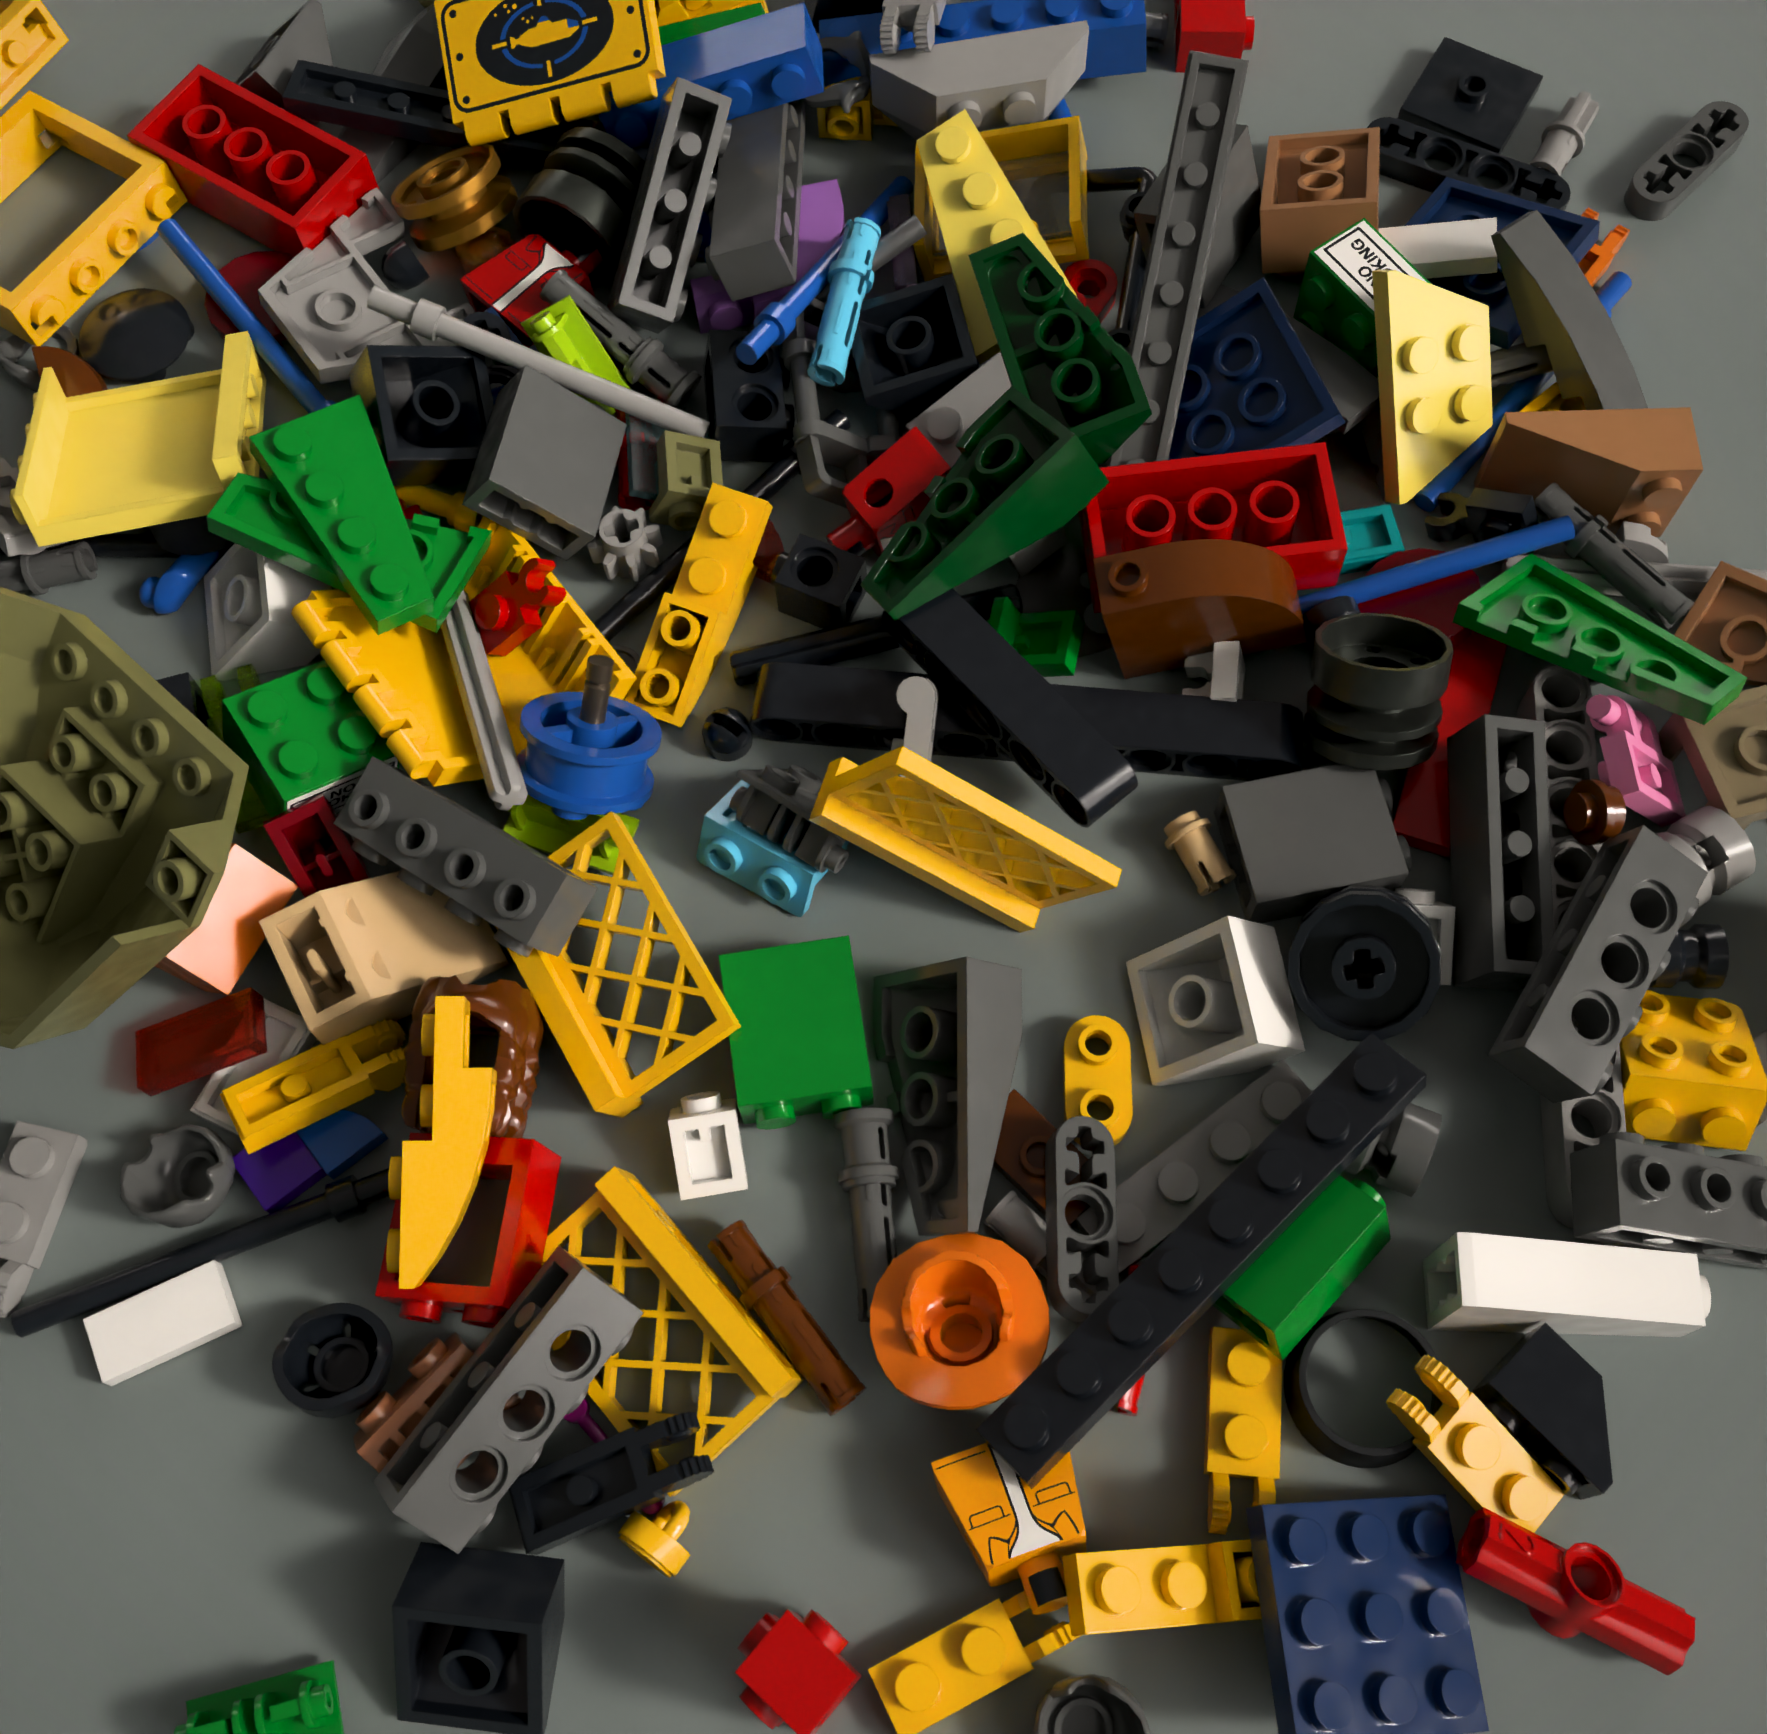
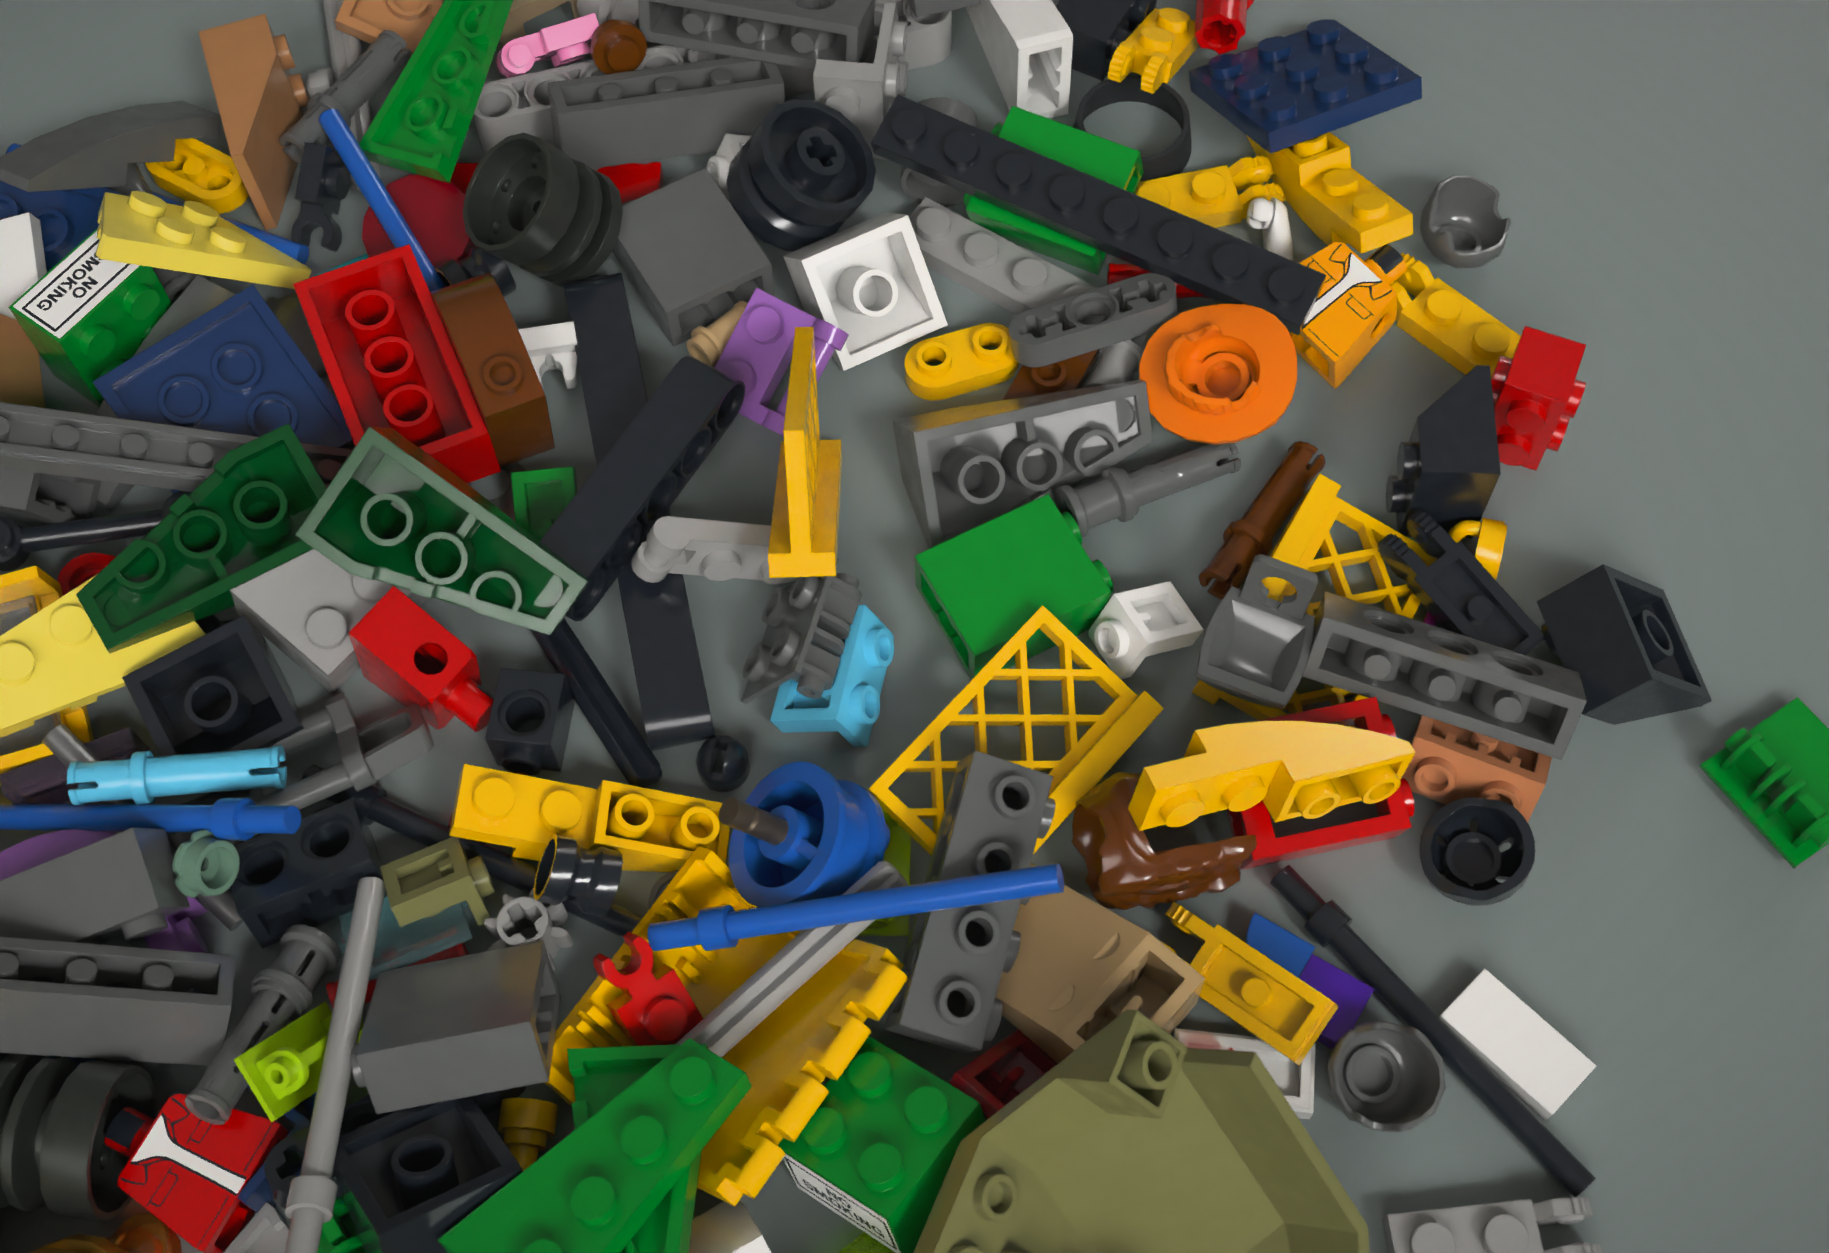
camera: 110 degrees left, 5 degrees down
(531, 663) = (723, 926): none -> blue bar
(598, 1205) = (1257, 643): none -> dark grey piece
(641, 574) = (578, 873): none -> black wheel
(747, 302) = (205, 865): none -> sand green plate
(753, 1526) = (1449, 457): none -> black slope
(1150, 1497) = (1274, 221): none -> white arm
(1155, 874) = (763, 350): none -> medium lavender plate
(1473, 1091) = (867, 89): none -> light grey bracket

